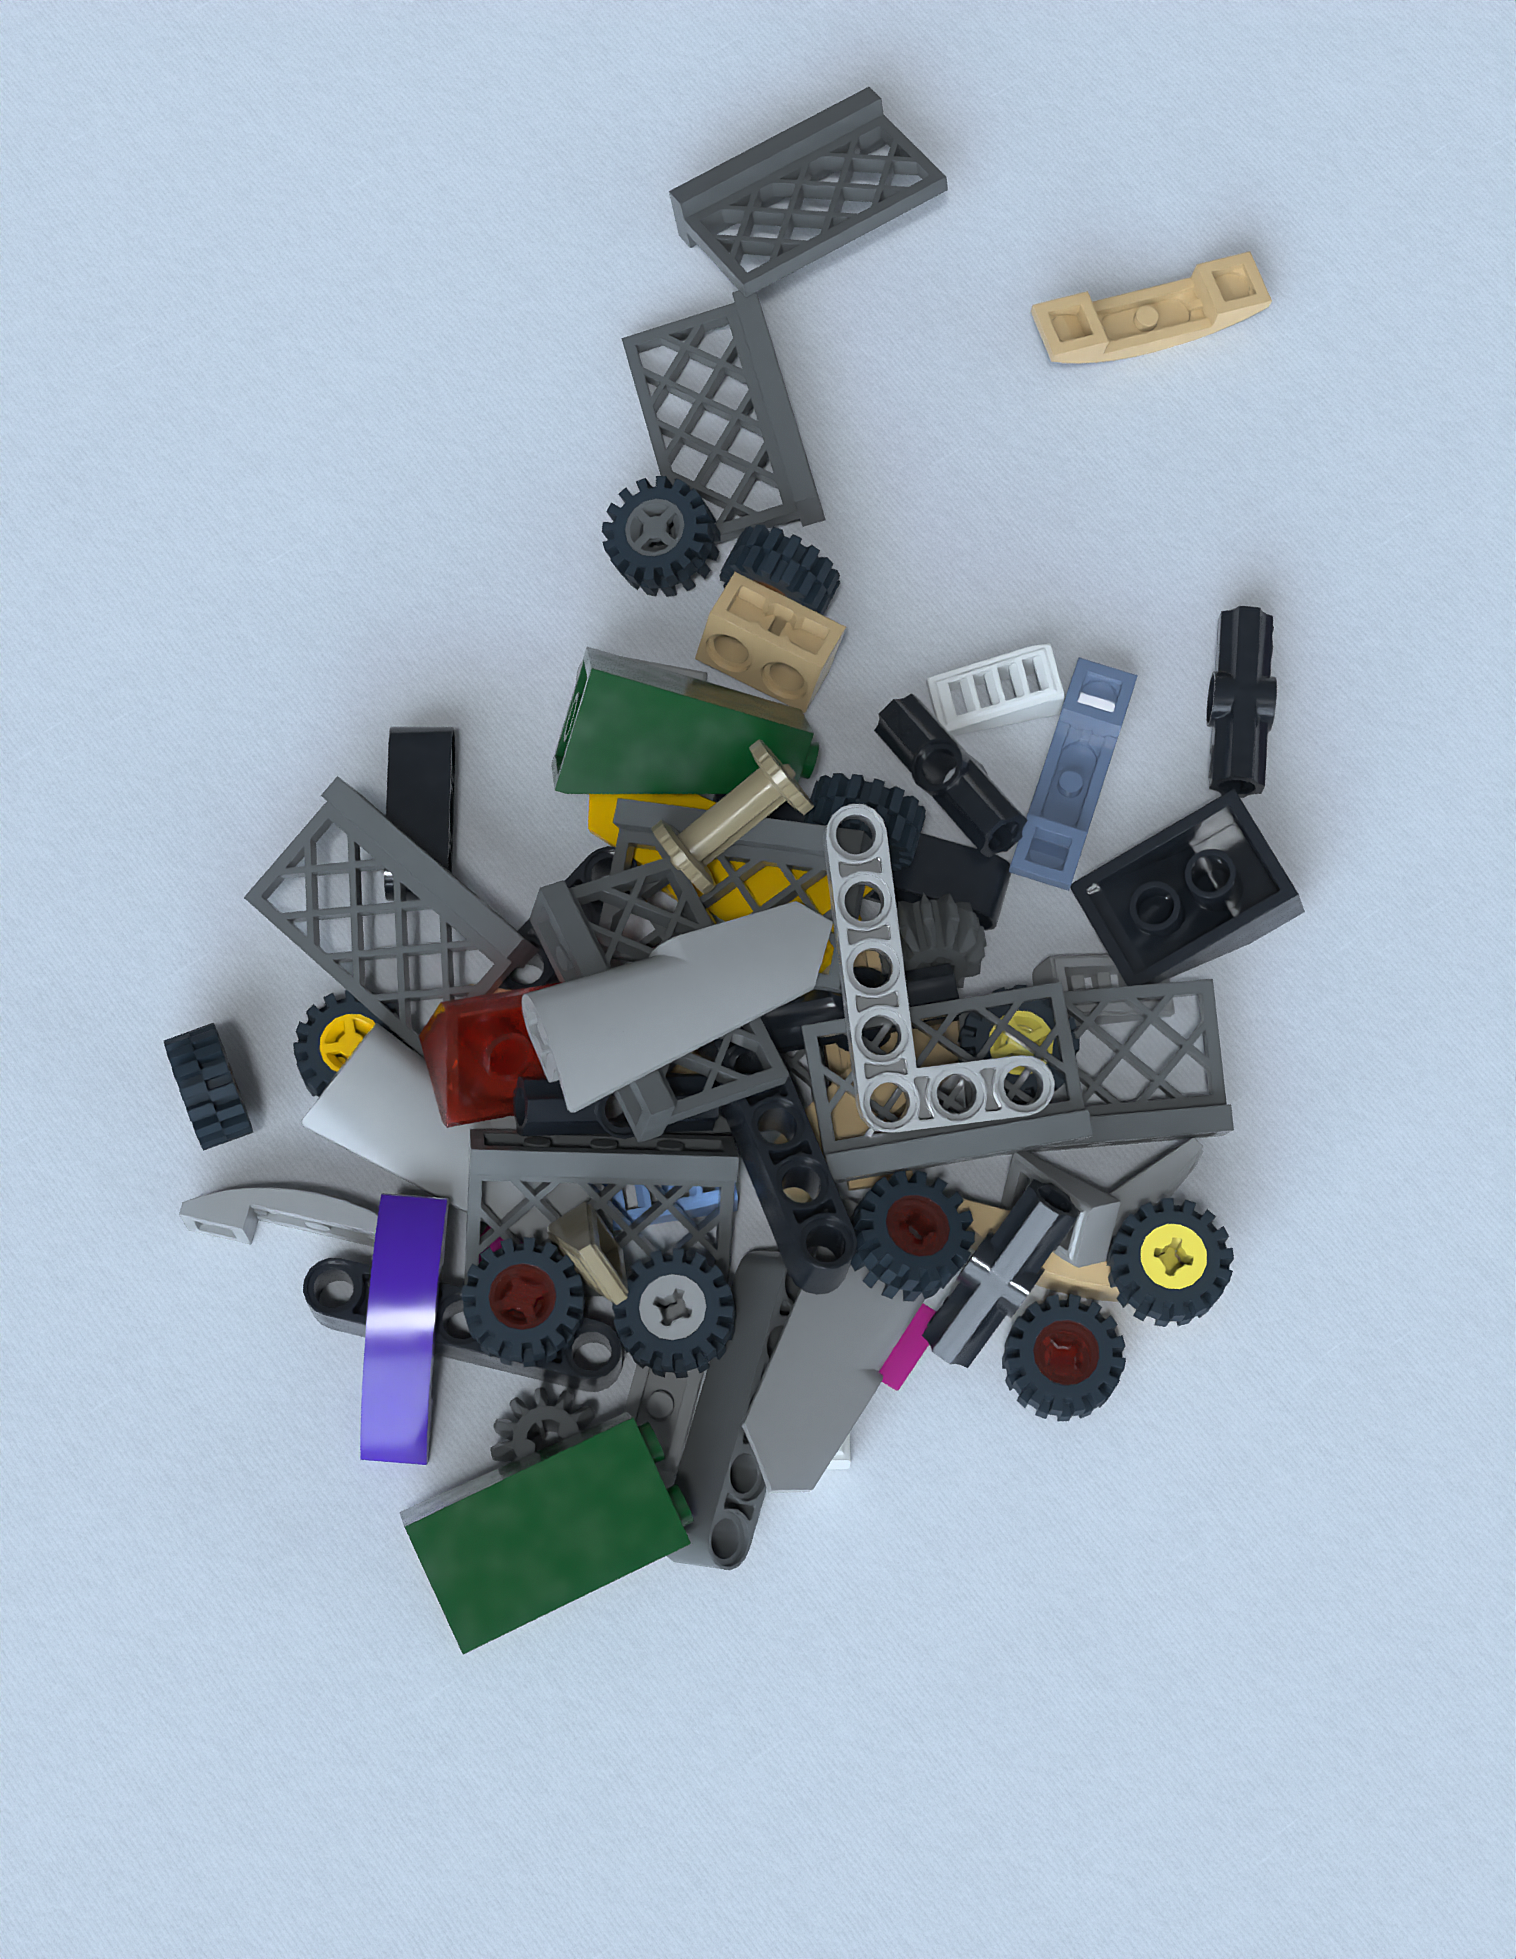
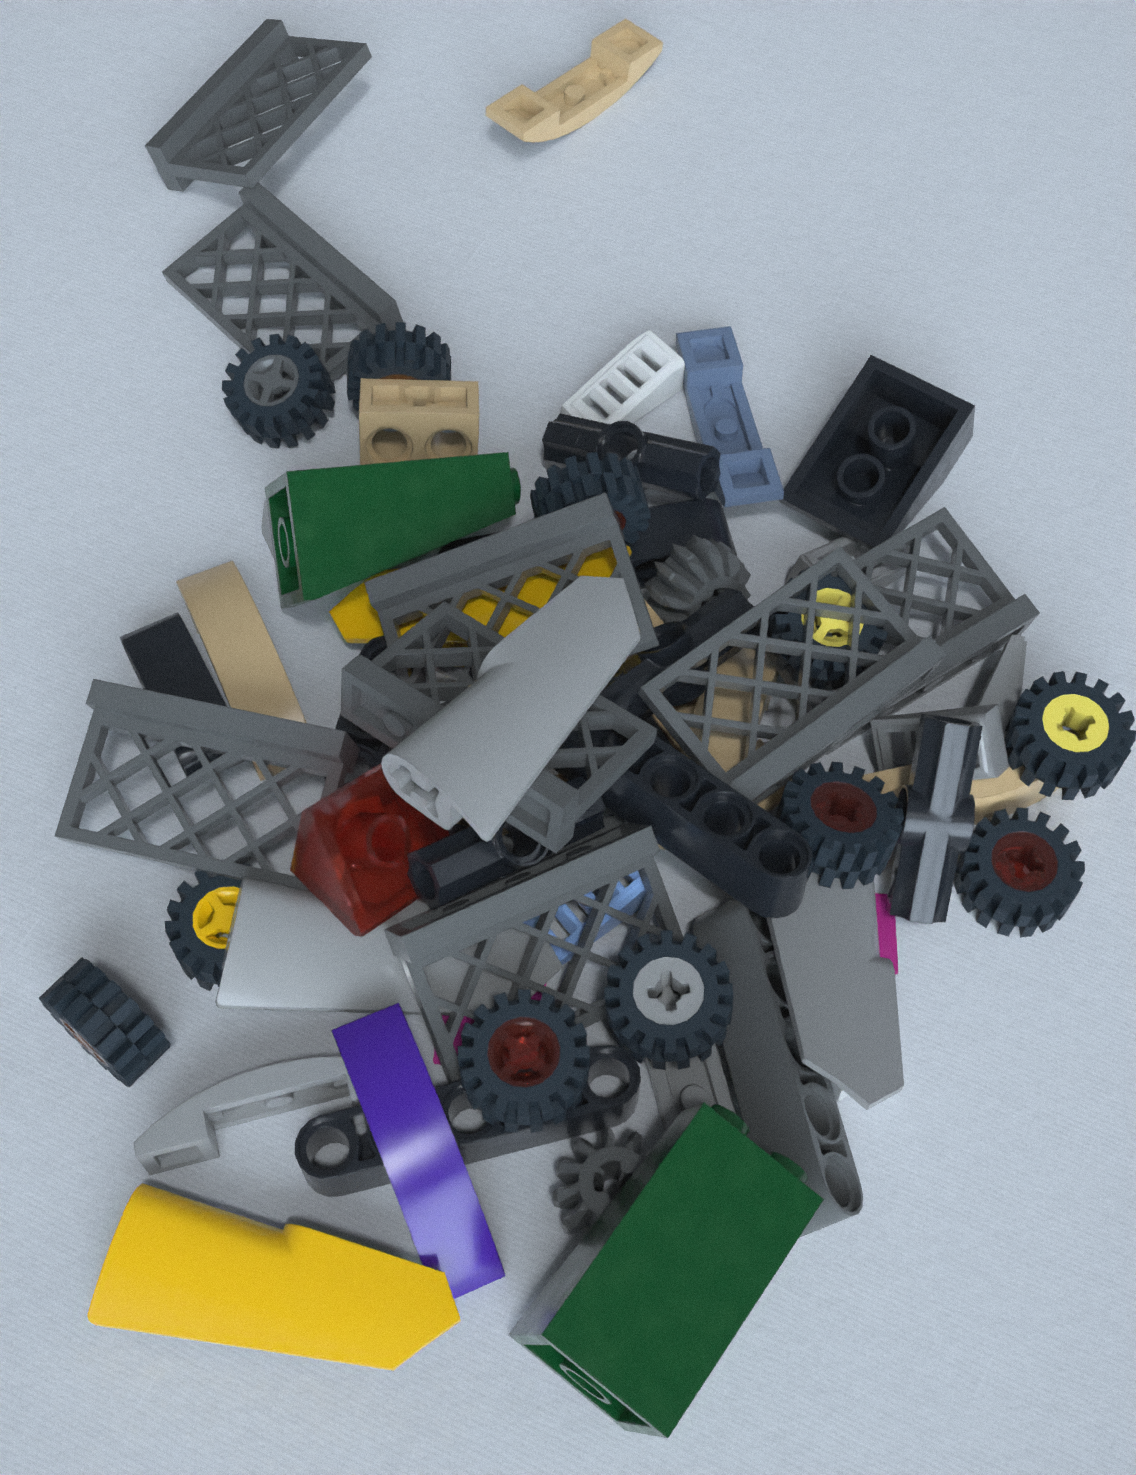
camera: 25 degrees left, 10 degrees down
(229, 1371) = (265, 1288): none -> yellow panel
(492, 795) = (239, 645): none -> tan slope
(592, 1250) = (567, 978): dark tan slope -> none
(732, 817) = (483, 533): dark tan hose -> none
(891, 1002) = (716, 614): light grey beam -> none
(1241, 701) = (819, 310): black piece -> none

